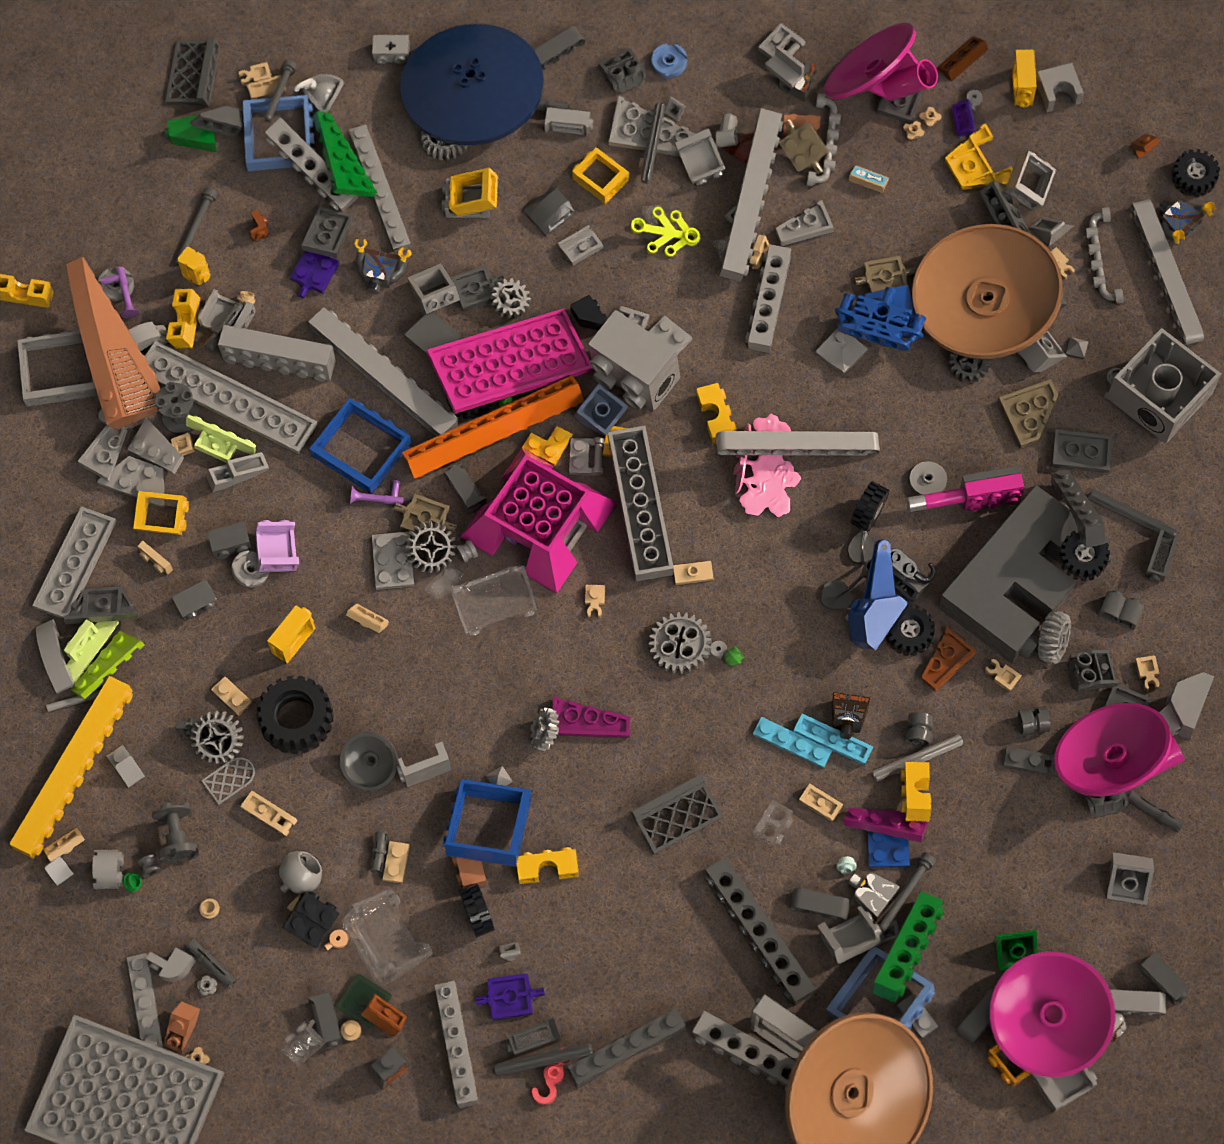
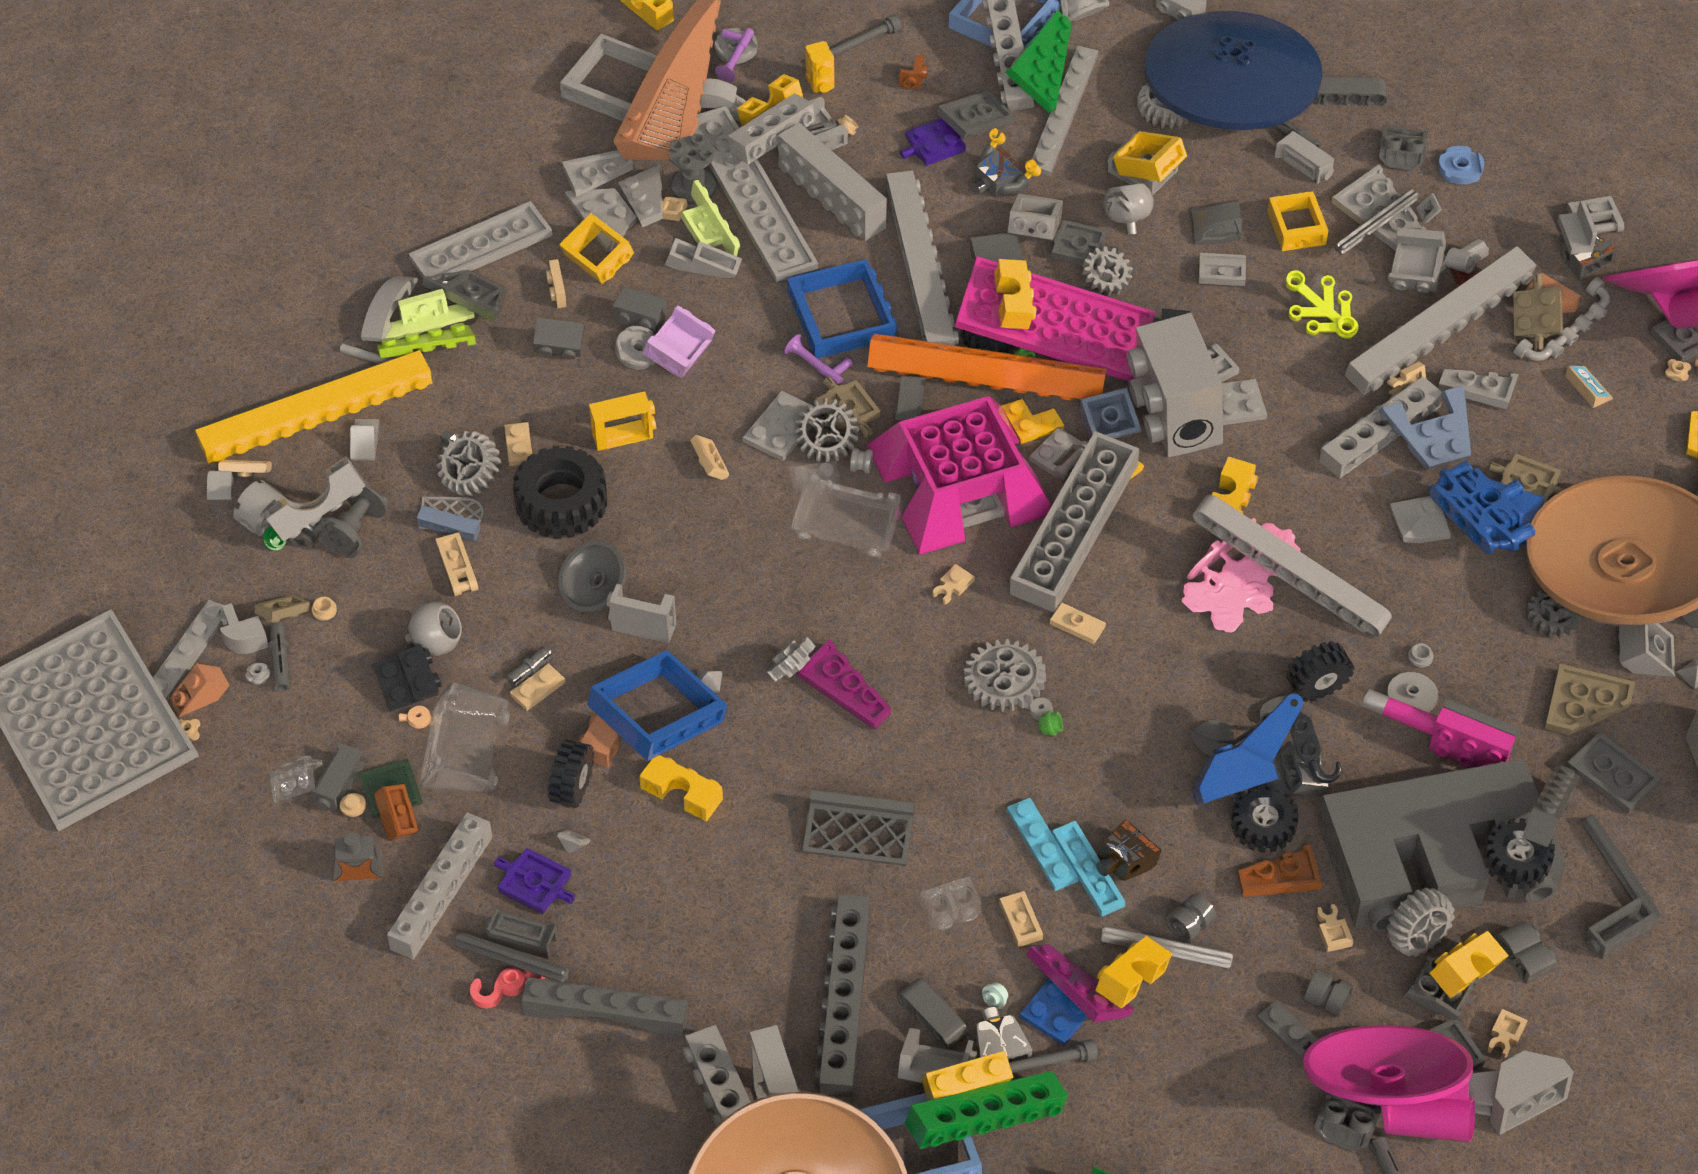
camera: 35 degrees right, 15 degrees down
(140, 863) = (291, 517): none -> light grey arch
(185, 929) = (281, 608): none -> dark tan plate
(199, 346) = (762, 132): none -> light grey brick
(238, 788) = (448, 523): none -> sand blue piece
(466, 352) = (1016, 306): none -> yellow arch
(486, 237) = (1128, 204): none -> light grey piece
(812, 282) = (1438, 439): none -> sand blue wing
(880, 944) = (967, 1076): none -> yellow arch
(913, 448) = (1420, 655): none -> light grey plate
(1099, 636) = (1467, 963): none -> yellow arch

